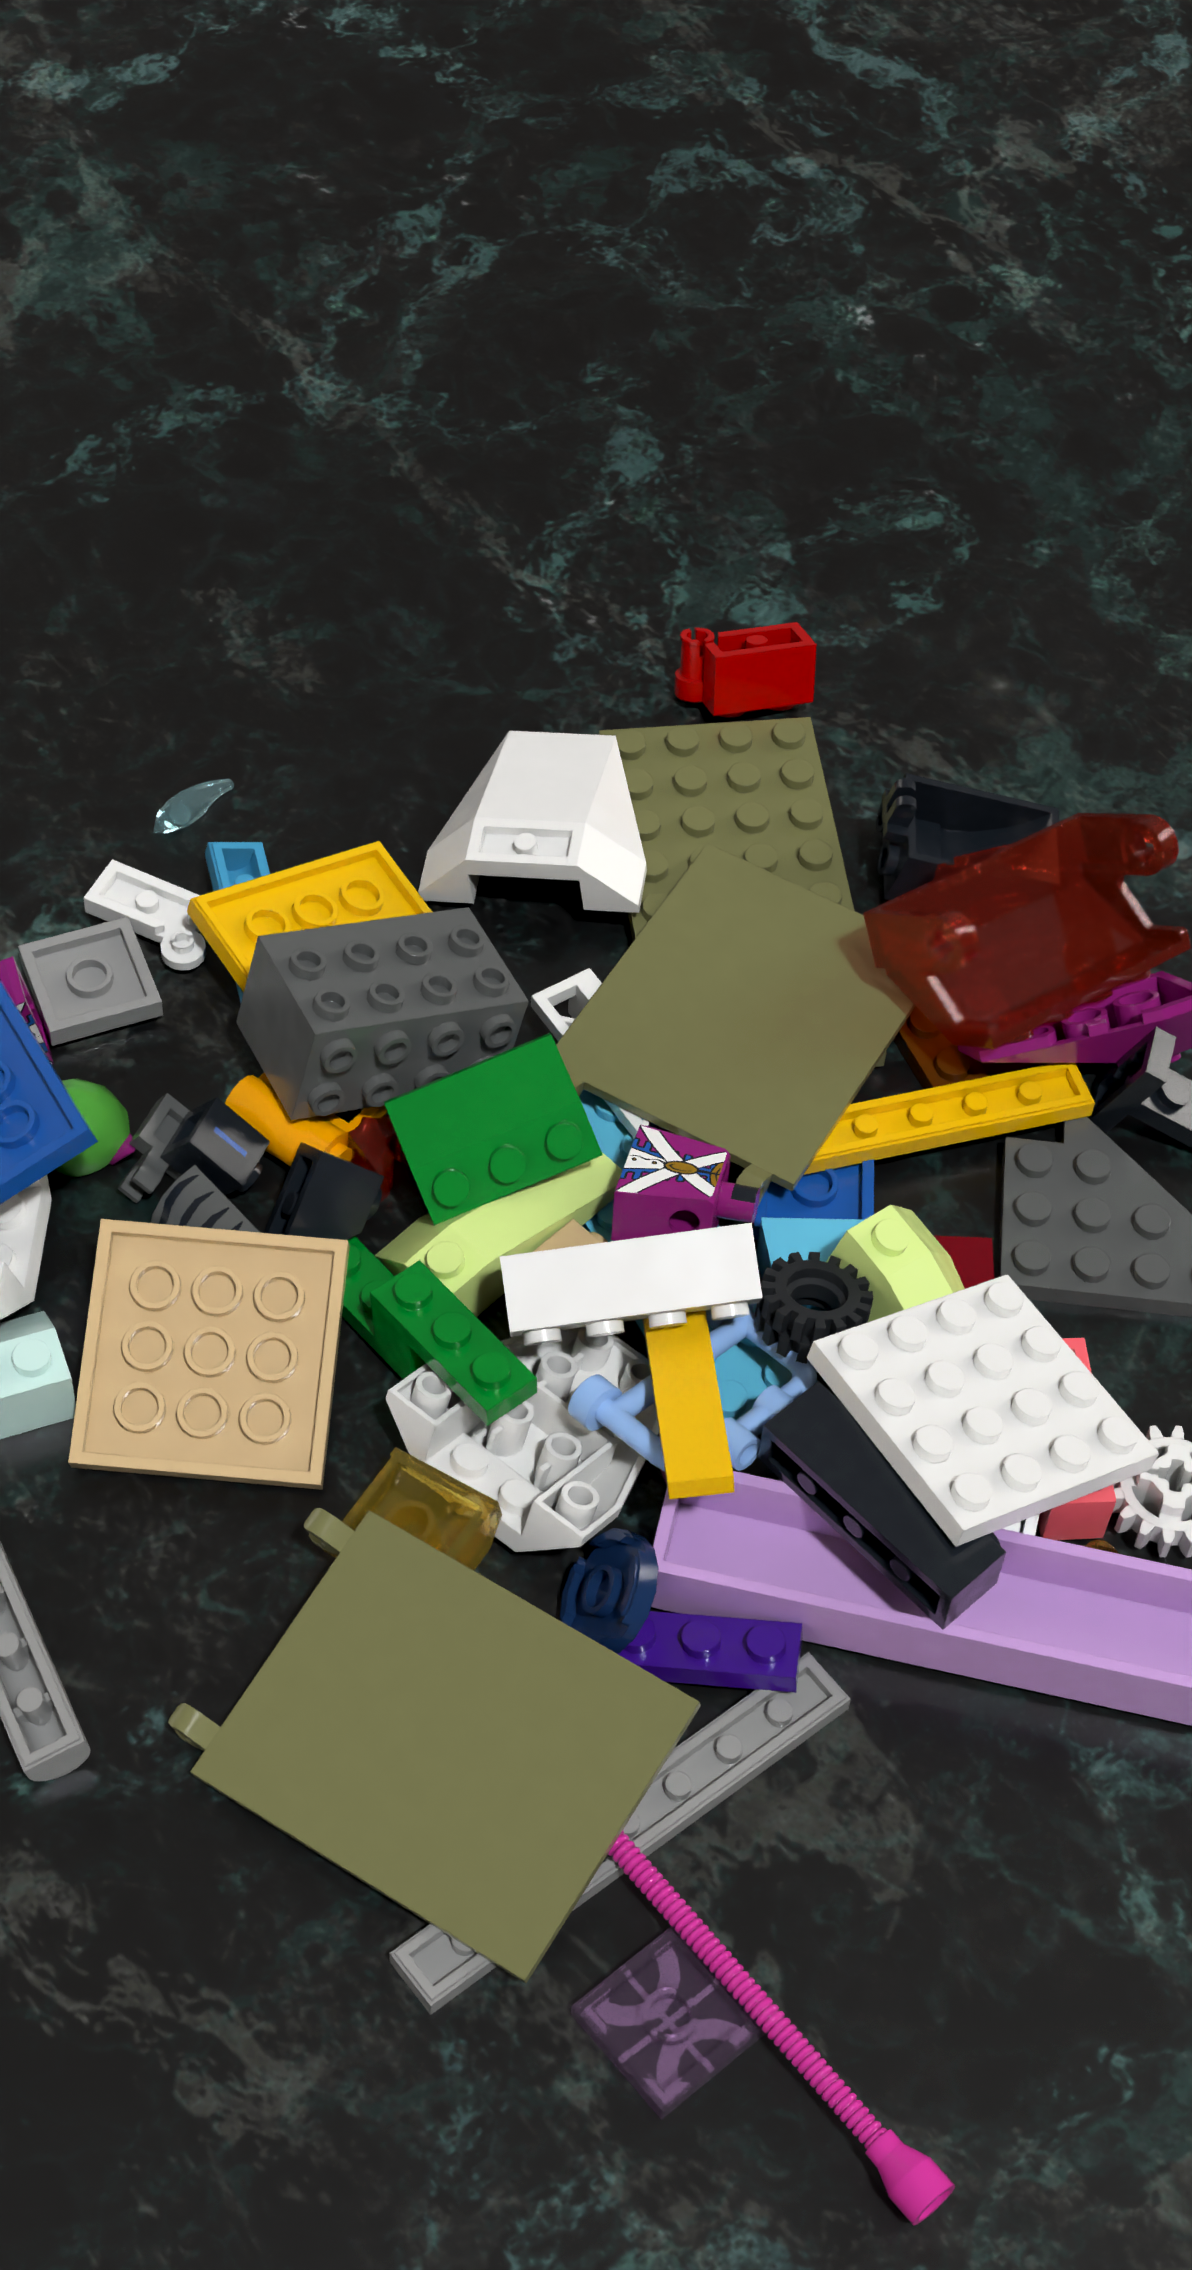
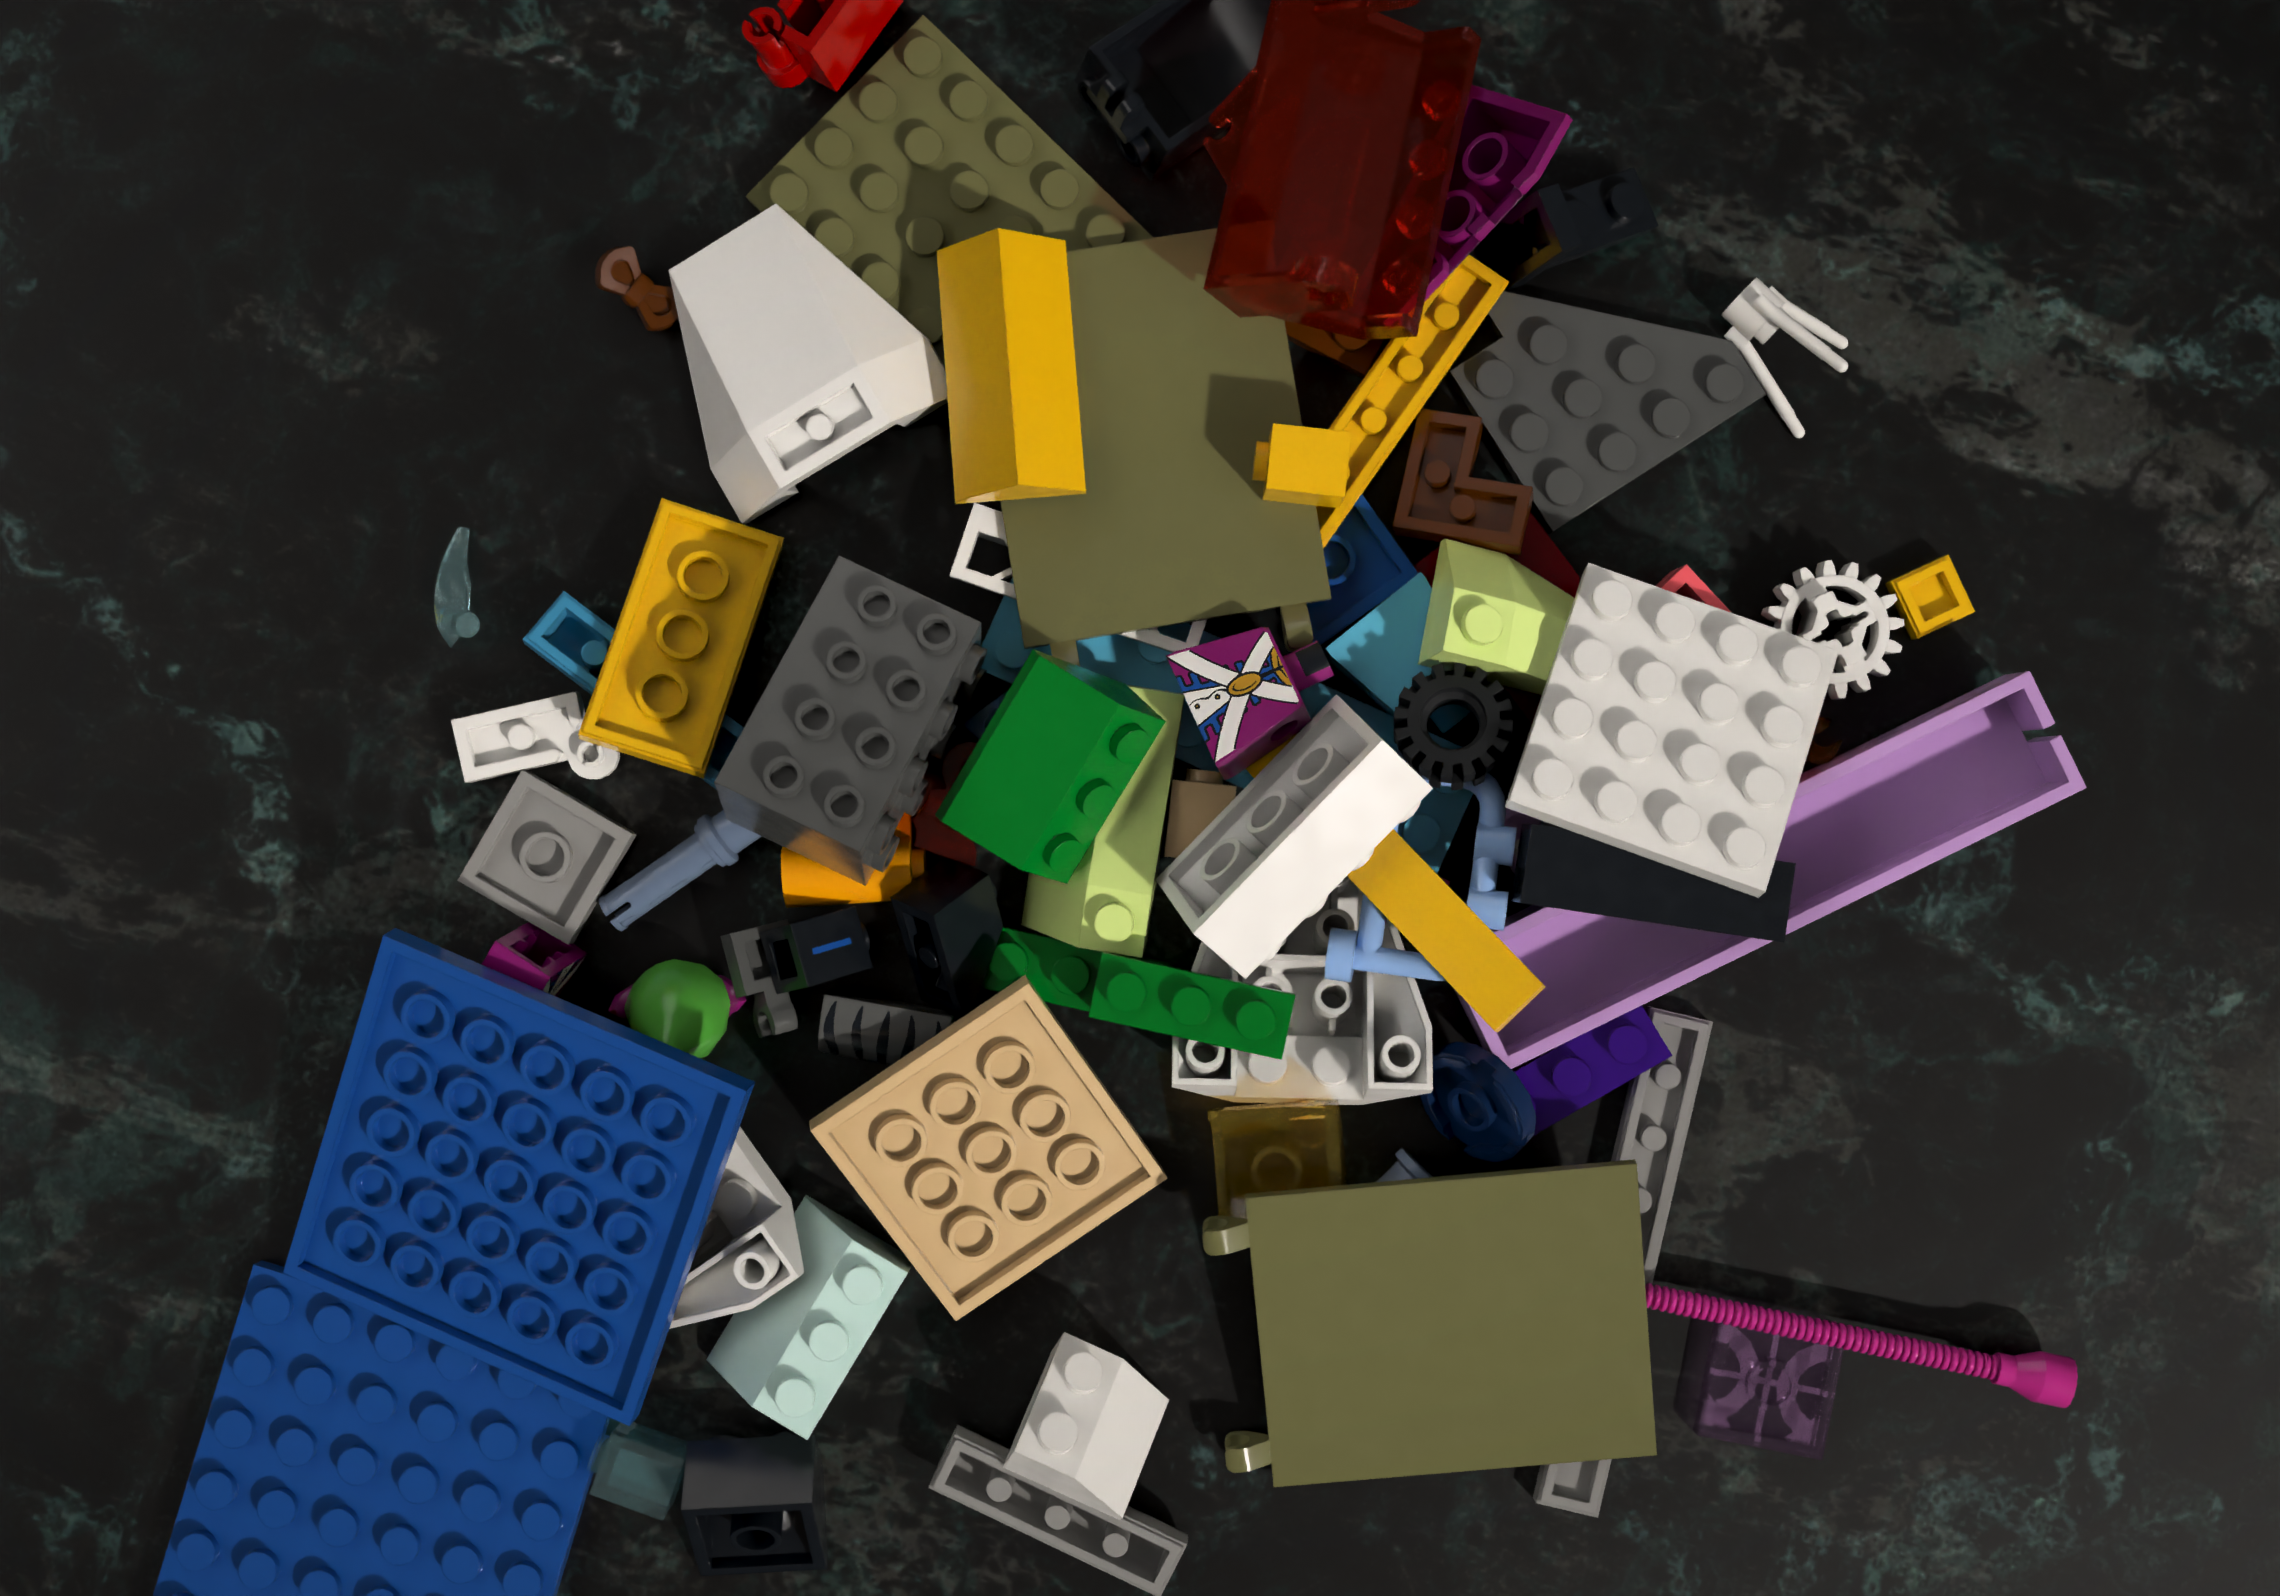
camera: 35 degrees left, 35 degrees up
(93, 1591) = (1088, 1427): none -> white slope
(211, 1048) = (713, 843): none -> sand blue pin
(475, 713) = (620, 274): none -> reddish brown piece
(691, 901) = (1010, 368): none -> yellow slope
(845, 1082) = (1303, 465): none -> yellow brick
(946, 1200) = (1444, 499): none -> reddish brown plate

